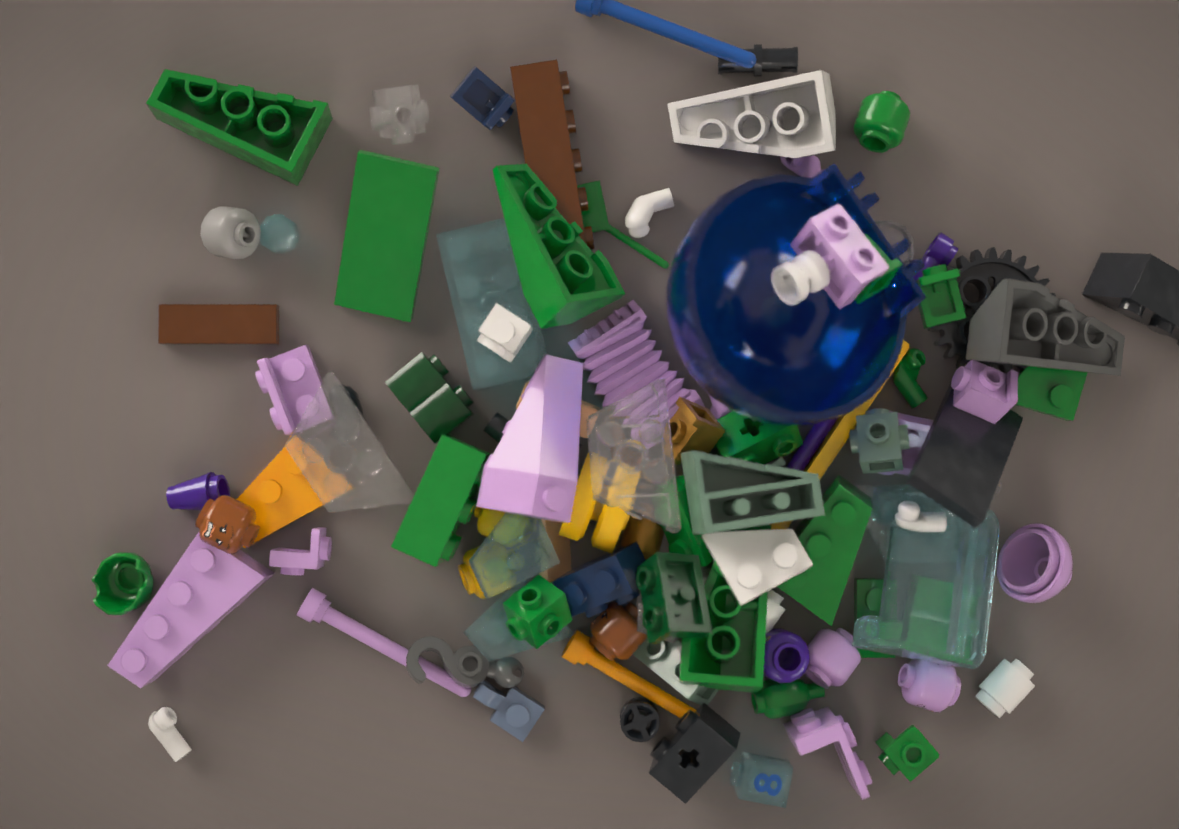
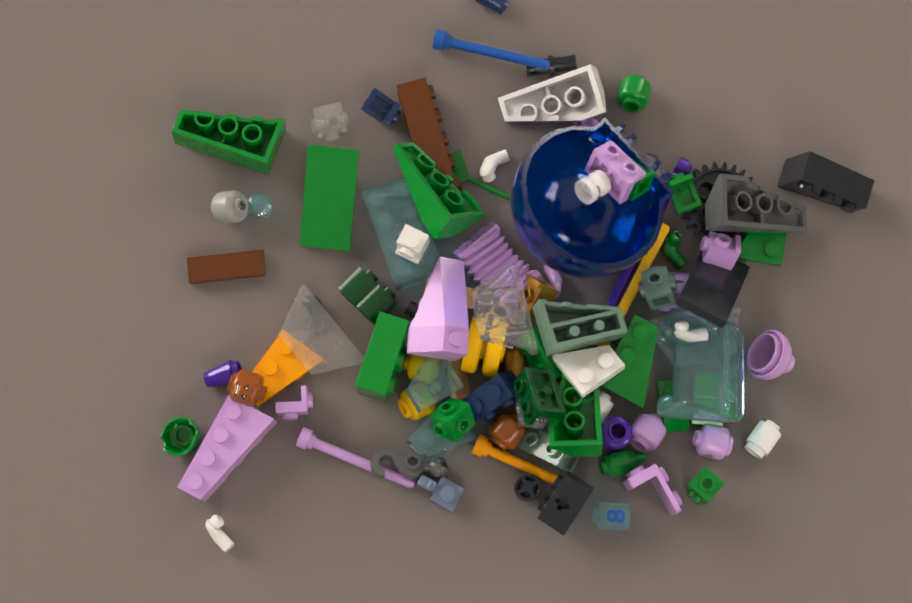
camera: 10 degrees left, 10 degrees down
(291, 383) = (278, 298): lavender bracket -> none
(755, 440) = (582, 291): green brick -> none

